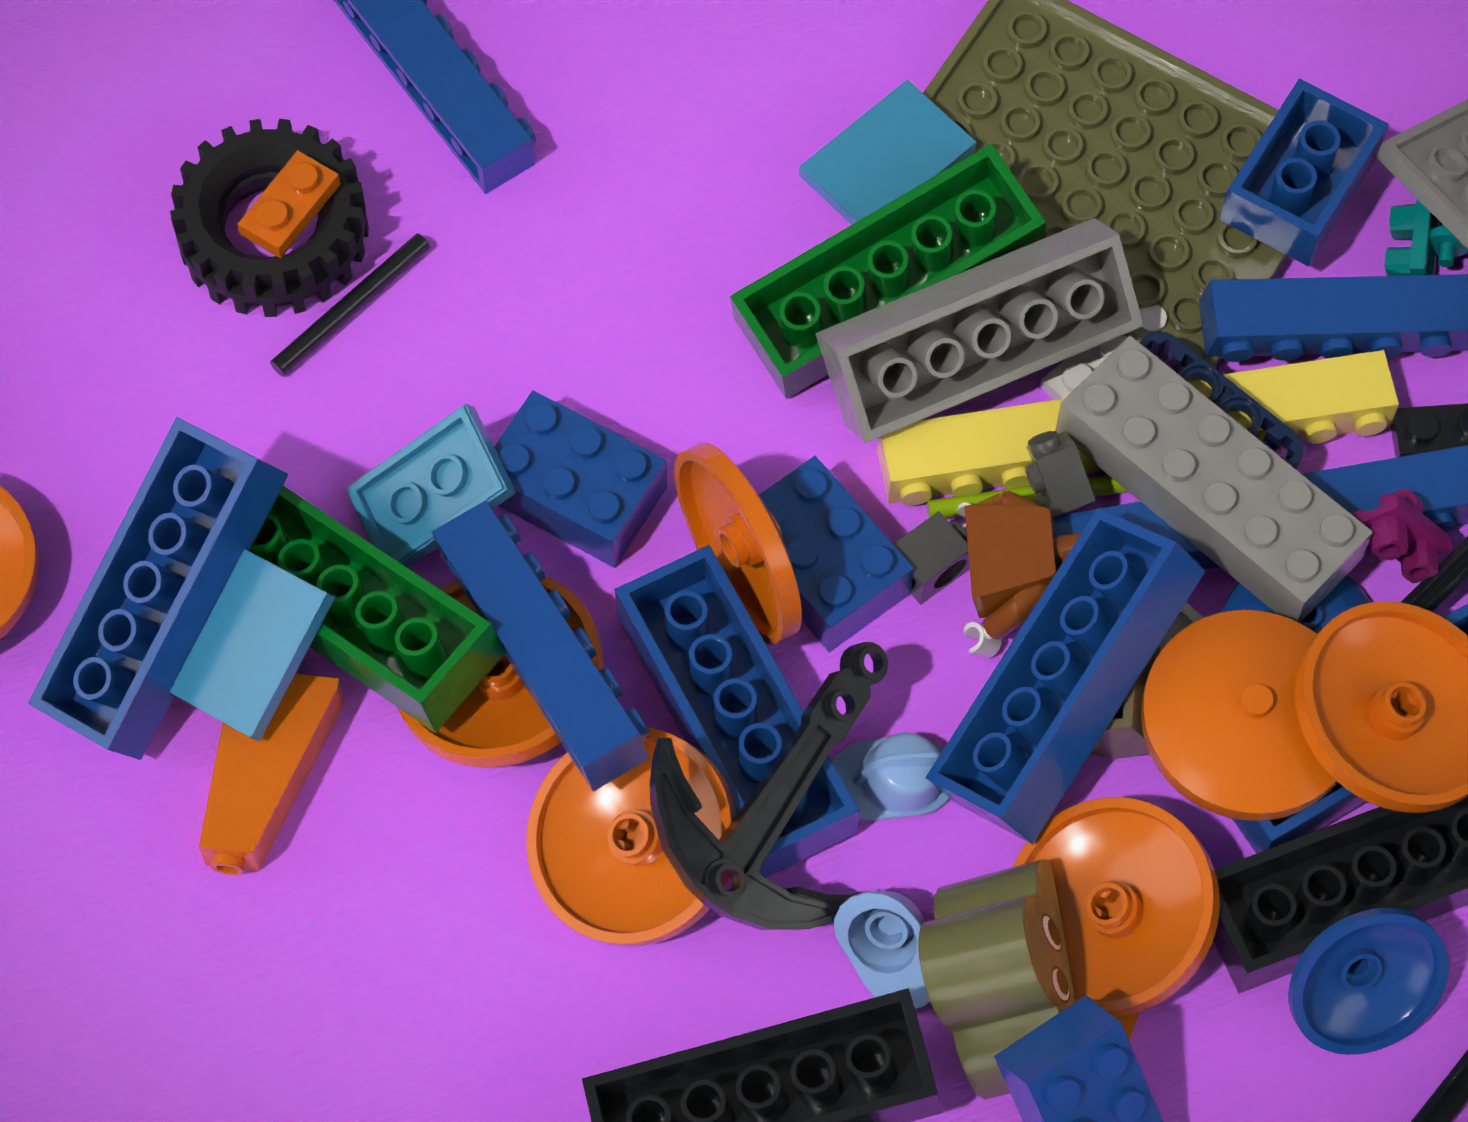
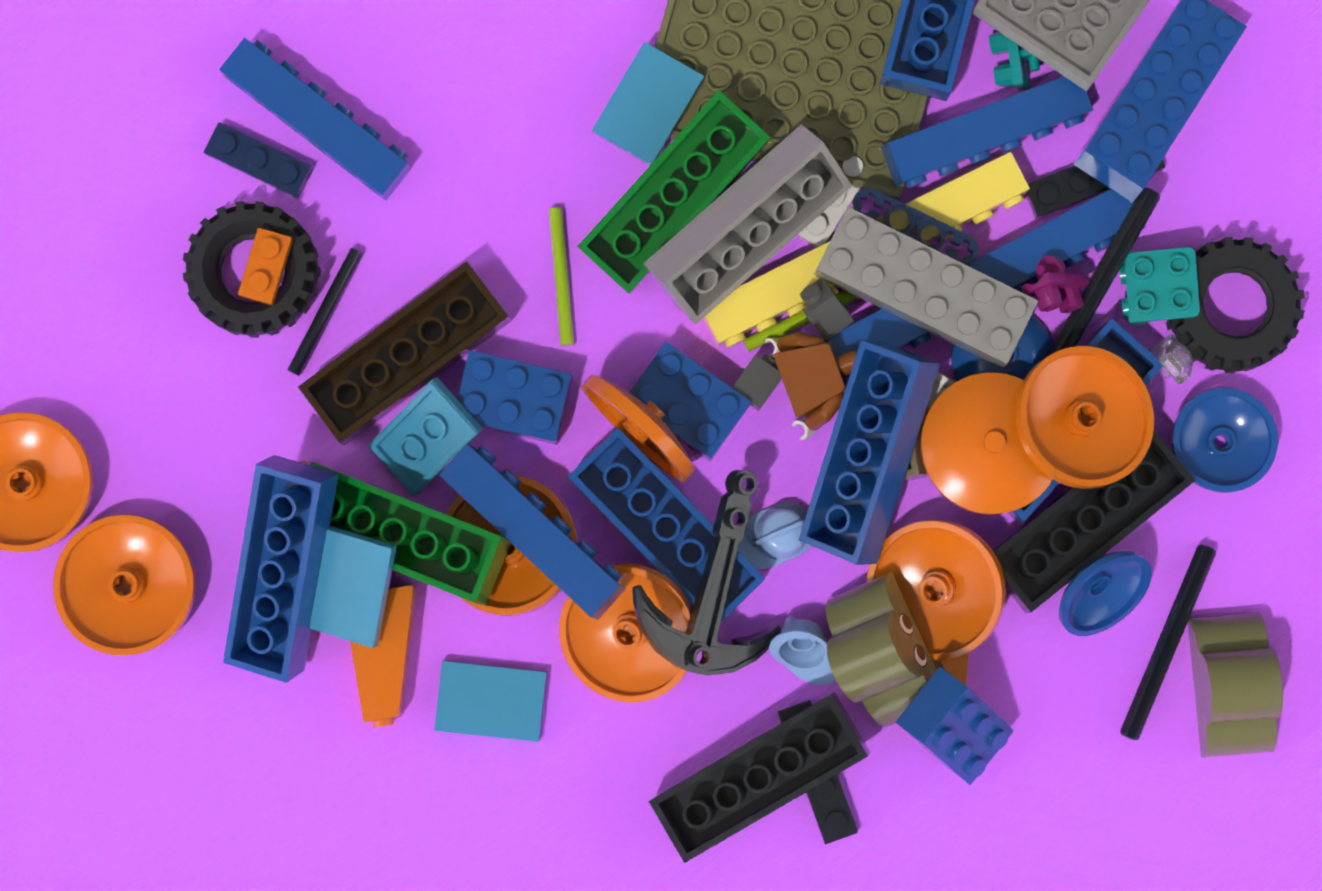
camera: 15 degrees left, 20 degrees up
(330, 96) = (258, 160): none -> dark blue plate
(396, 385) = (404, 354): none -> dark brown brick
(396, 886) = (490, 701): none -> dark azure tile
(695, 351) = (561, 276): none -> lime bar

